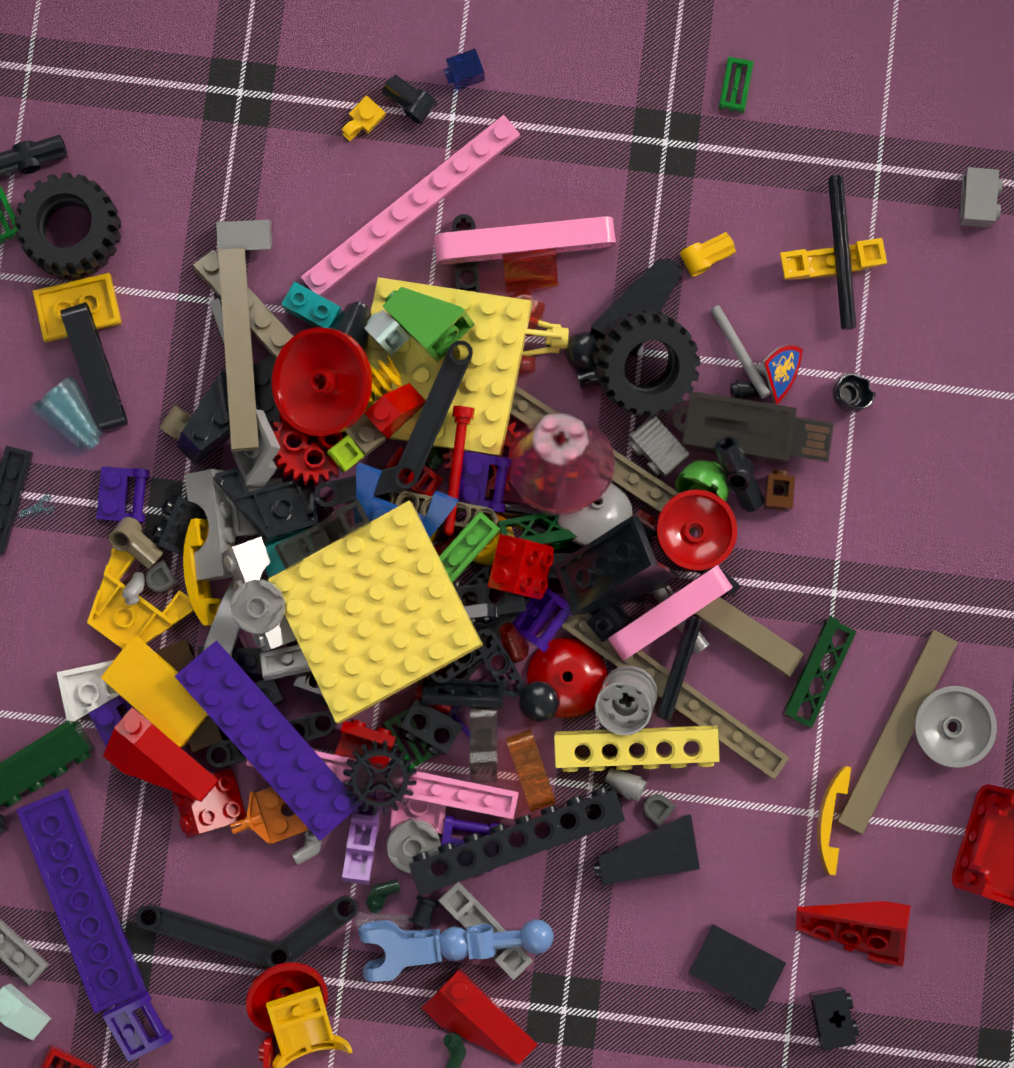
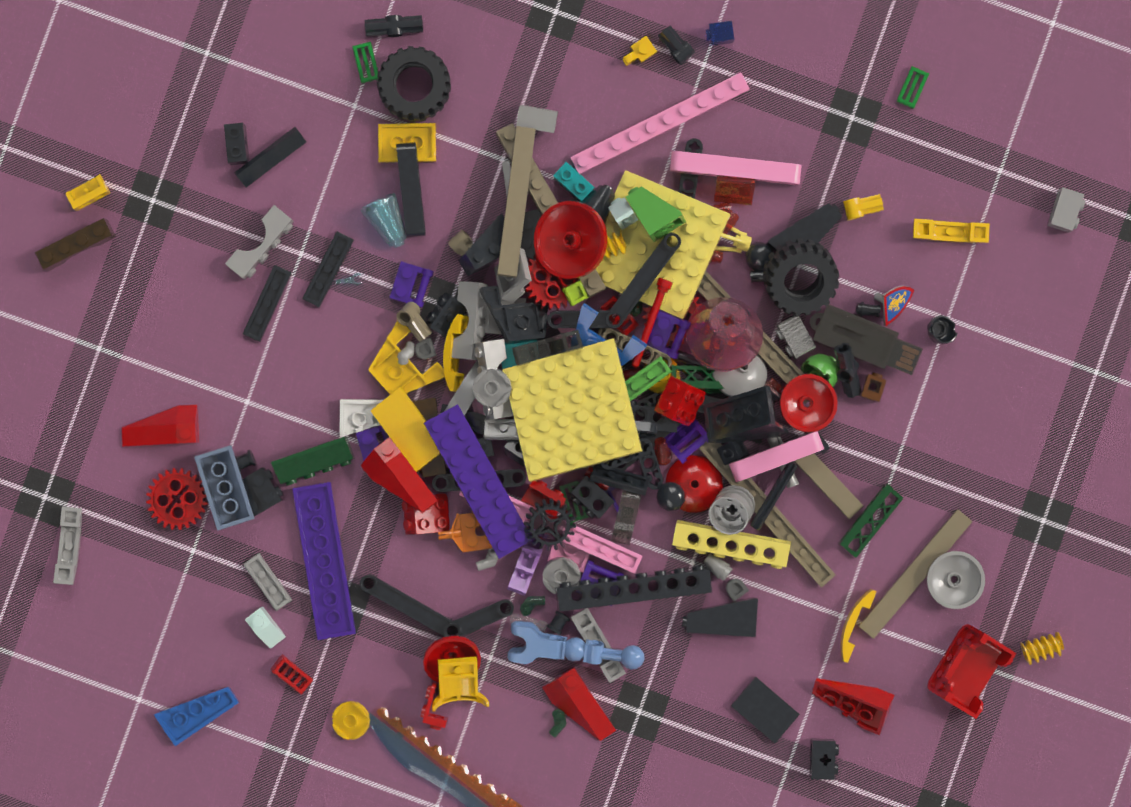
camera: 15 degrees right, 5 degrees up
(130, 1031) = (339, 658): dark purple plate -> none
(395, 409) = (617, 269): red slope -> none
(530, 770) = (654, 542): clear orange beam -> none
(740, 351) = (869, 282): light grey bar -> none
(842, 252) = (958, 227): black axle -> none

